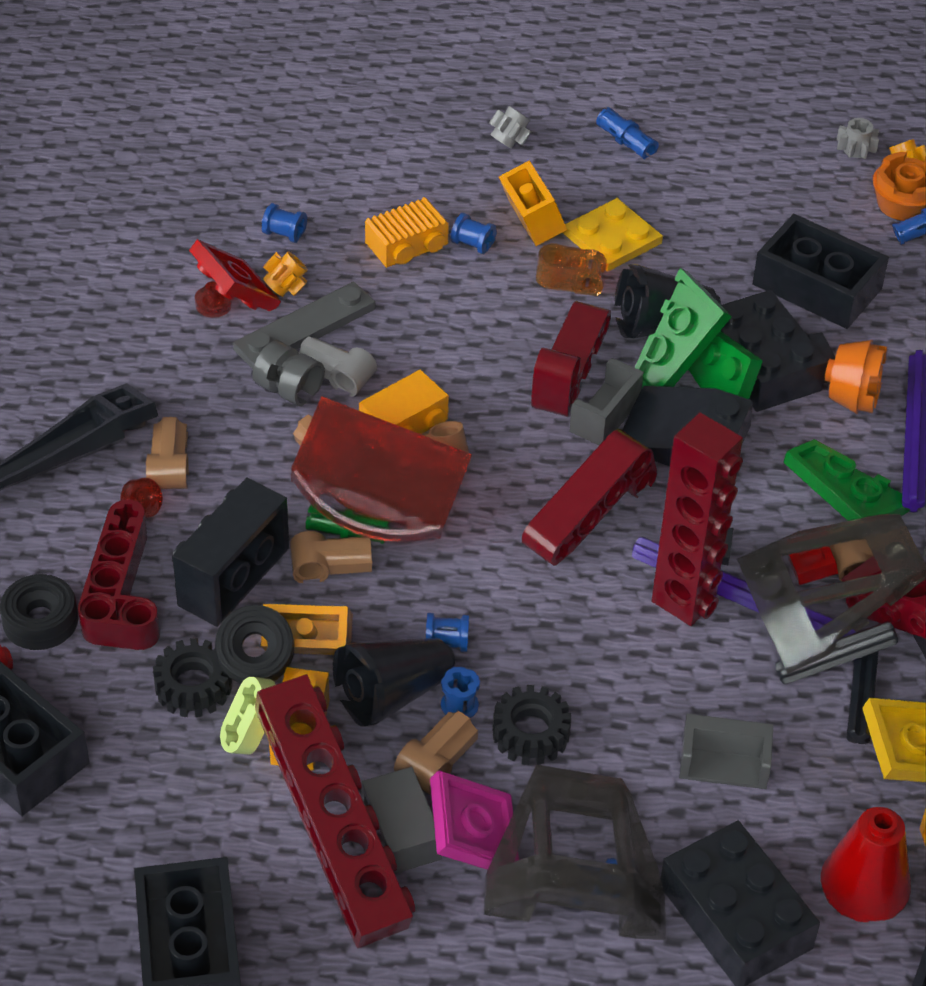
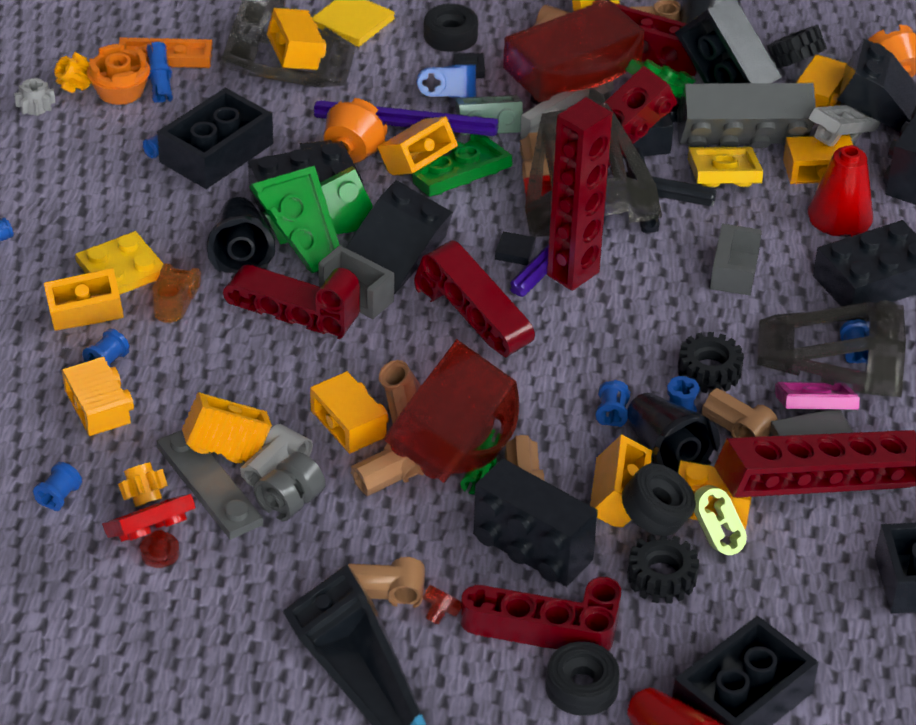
camera: 85 degrees left, 5 degrees down
(352, 310) = (225, 428): none -> light orange brick
(857, 437) = (417, 146): none -> light orange brick

